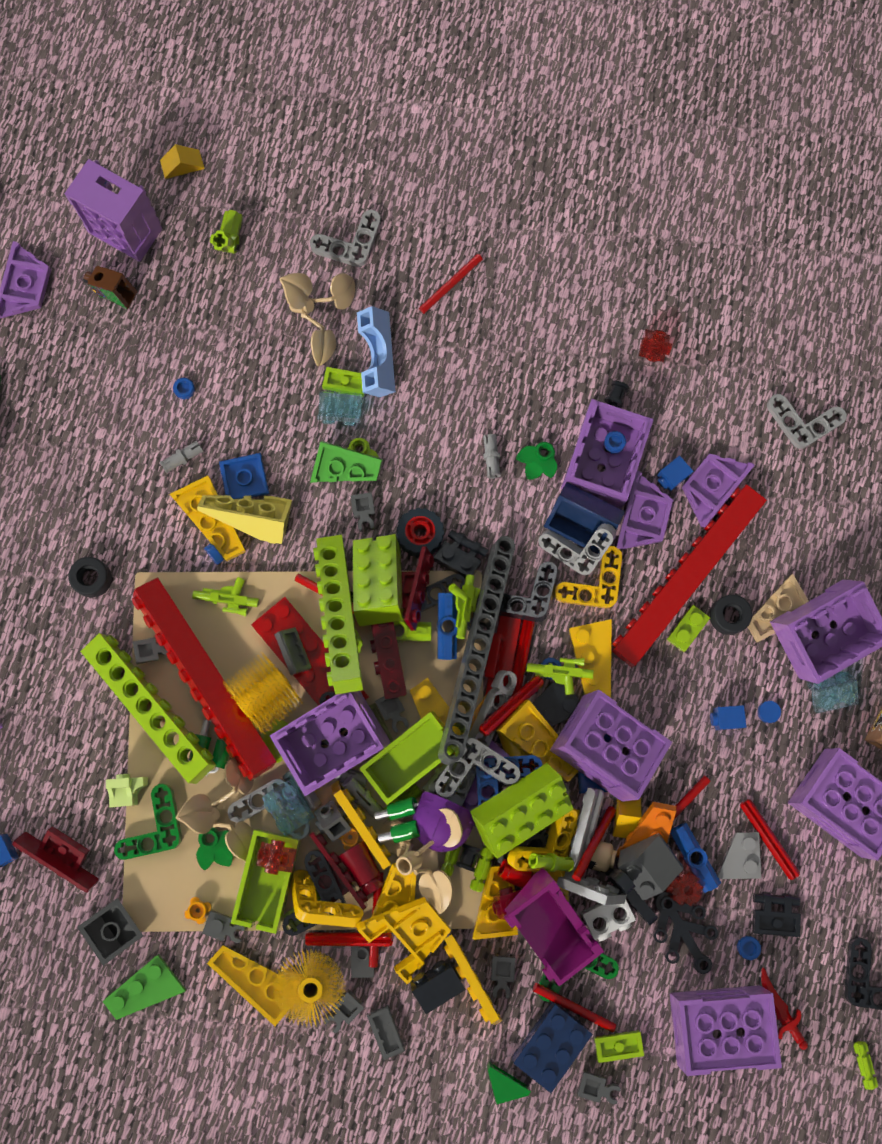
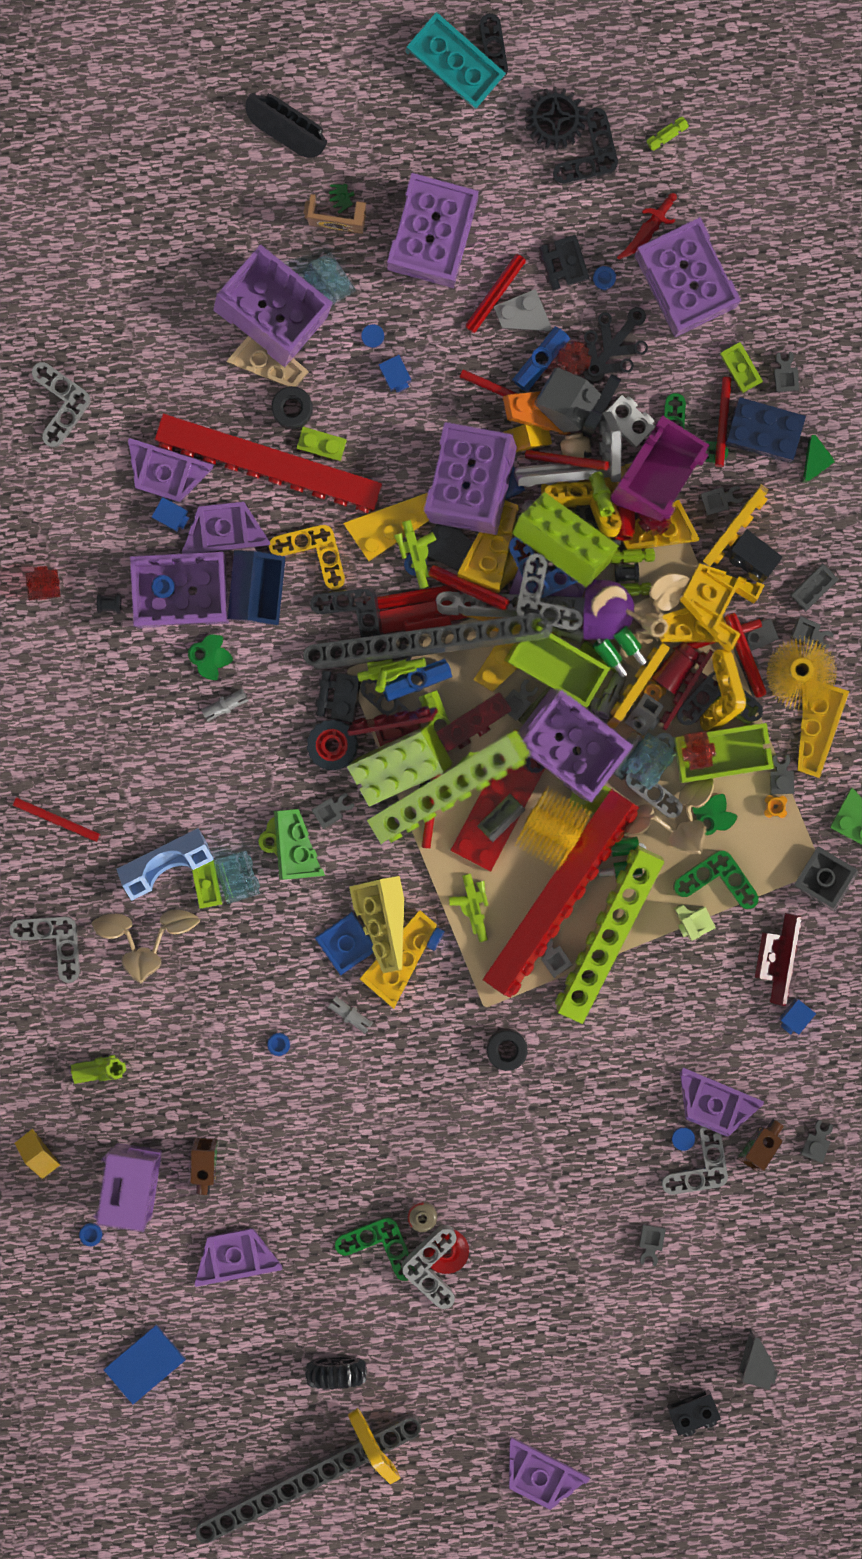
camera: 110 degrees left, 10 degrees up
(578, 554) = (292, 579): light grey beam -> none

